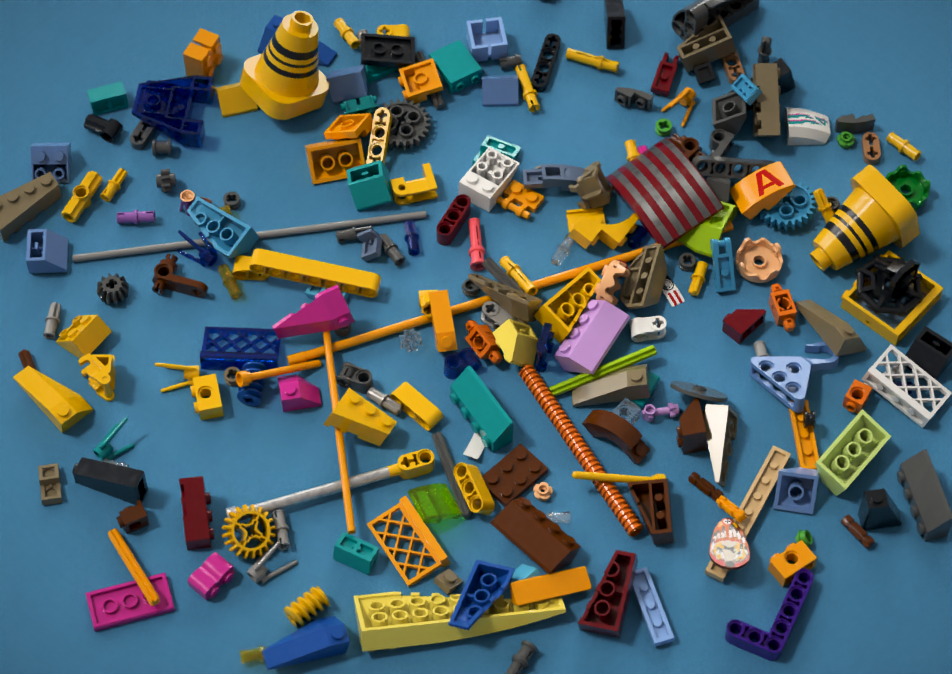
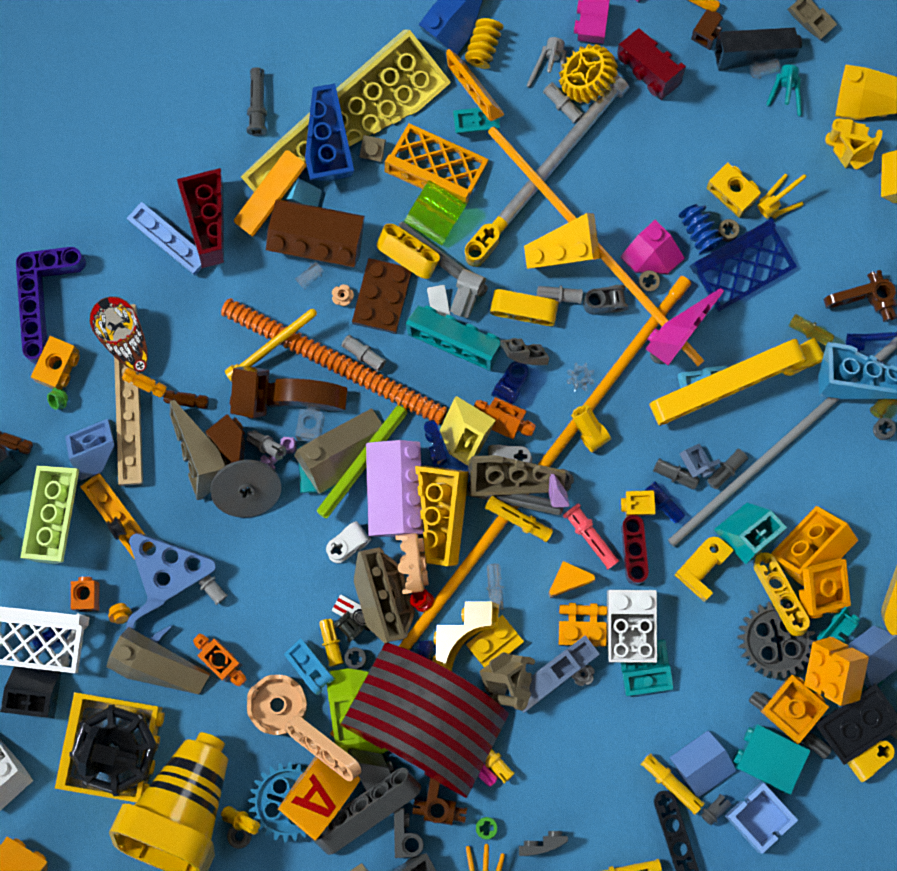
camera: 155 degrees right, 20 degrees up
(244, 378) = (705, 214): light orange piece -> none
(314, 374) = (646, 274): none -> dark tan bush
(340, 571) = (473, 86): none -> light orange slope
(388, 77) = (836, 675): none -> light orange piece
(431, 242) = (638, 503): none -> yellow bracket
(438, 371) = (526, 354): none -> dark grey slope
(442, 321) = (555, 404): light orange slope -> none
(447, 435) = (469, 287): none -> light grey piece
(483, 267) = (557, 493): none -> lavender slope
(510, 226) = (569, 578): none -> light orange slope
(553, 442) = (363, 353): none -> light grey pin
(654, 507) = (219, 337): reddish brown wedge -> none
(656, 455) = (249, 391): none -> reddish brown brick
(665, 419) = (266, 444): none -> light grey axle
(681, 278) = (348, 626): none -> pearl dark grey bush
(742, 323) = (251, 612): dark red slope -> none
(743, 206) = (323, 748): none -> light nougat beam
(838, 373) = (119, 613): none -> light orange plate

